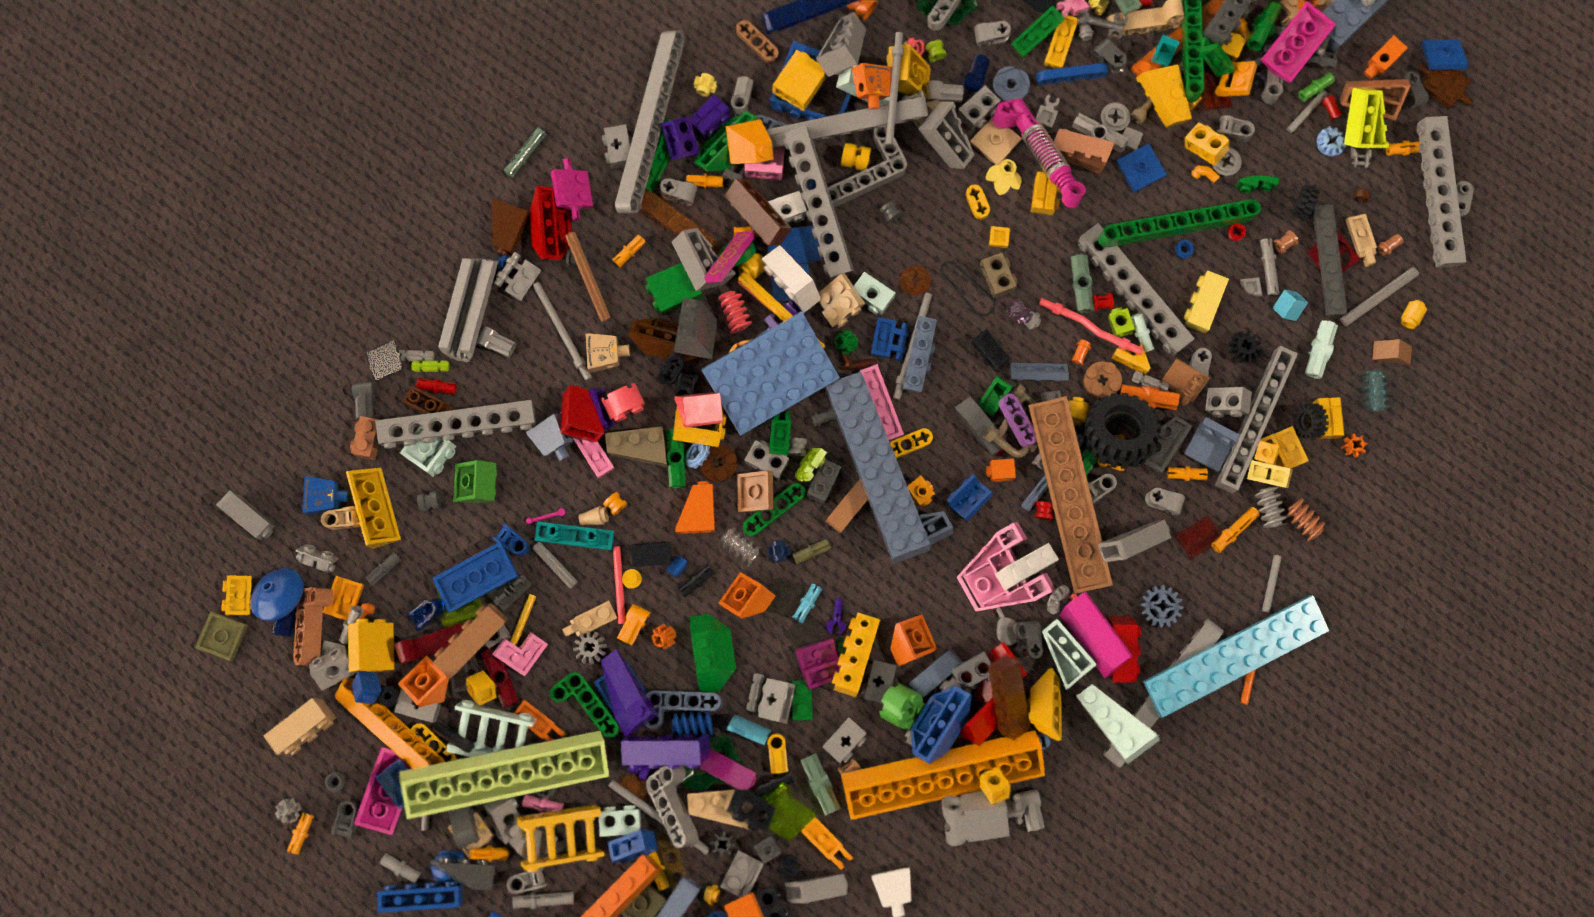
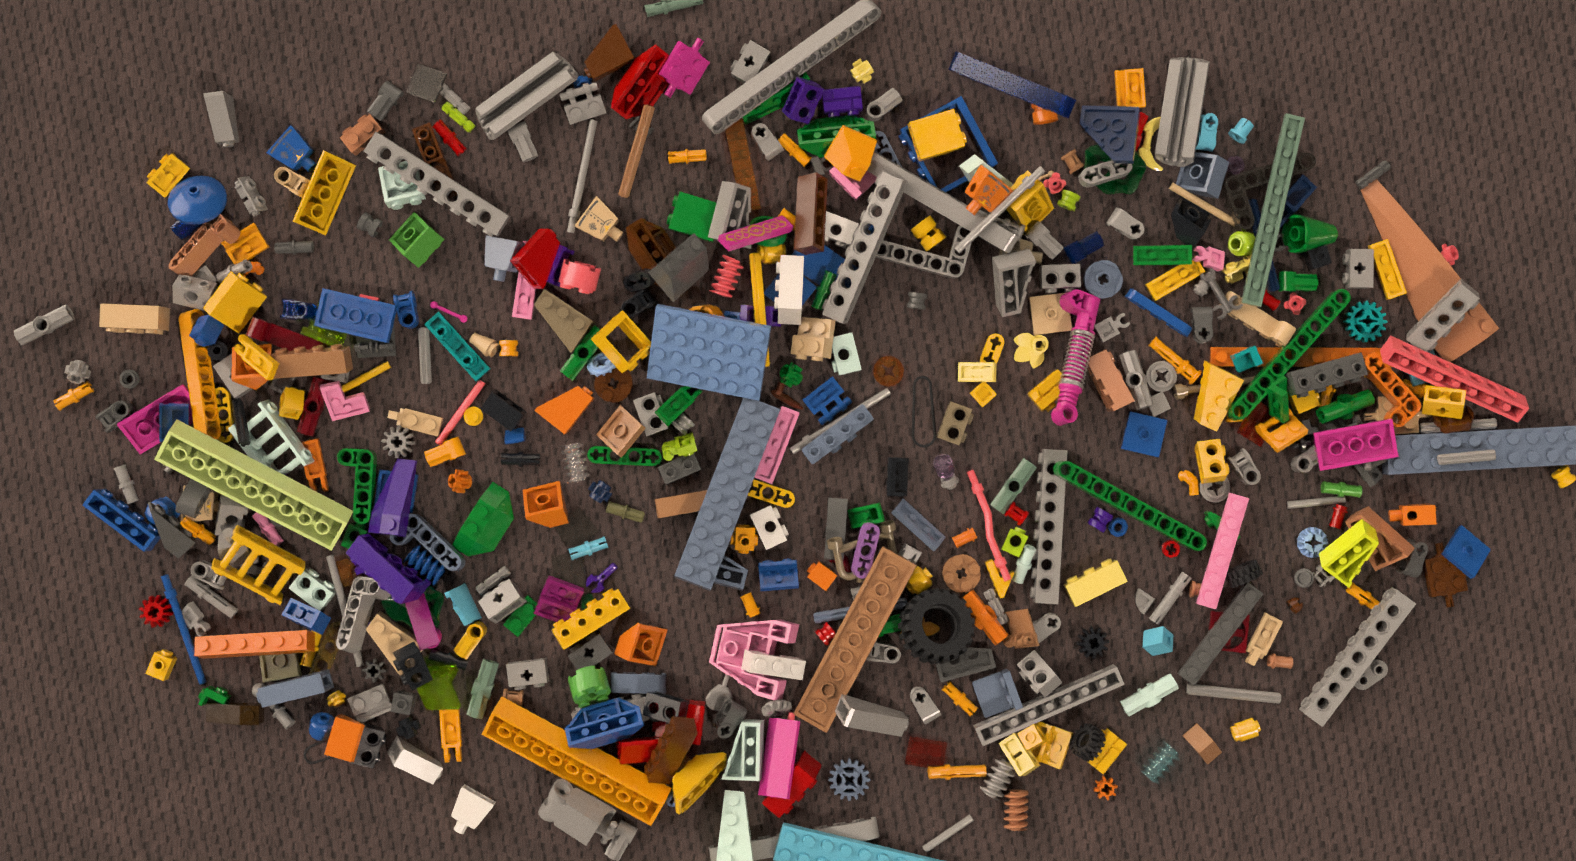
camera: 35 degrees right, 10 degrees up
(221, 636) = (131, 195): olive plate -> none
(225, 808) = (34, 329): none -> light grey piece
(424, 671) = (256, 357): none -> yellow hinge
(615, 759) = (348, 538): none -> green brick
(700, 409) = (631, 332): coral slope -> none
(757, 34) = (941, 83): medium nougat beam -> none
(815, 261) = (823, 289): none -> green pin
(823, 417) = (723, 417): dark grey pin -> none
(843, 45) = (994, 137): light grey wedge -> none
(914, 22) = (1072, 161): none -> medium nougat bush
(936, 477) = (768, 538): none -> white brick
(968, 539) = (750, 605): none -> light orange pin
(981, 224) = (977, 371): none -> light yellow plate
(998, 791) = (600, 810): yellow brick -> none
(1123, 97) = (1182, 366): none -> light orange pin
(1167, 253) = (1100, 519): none -> dark purple wheel
(1275, 198) = (1222, 551): none -> bright pink plate
(1350, 170) = (1304, 578): none -> dark grey plate

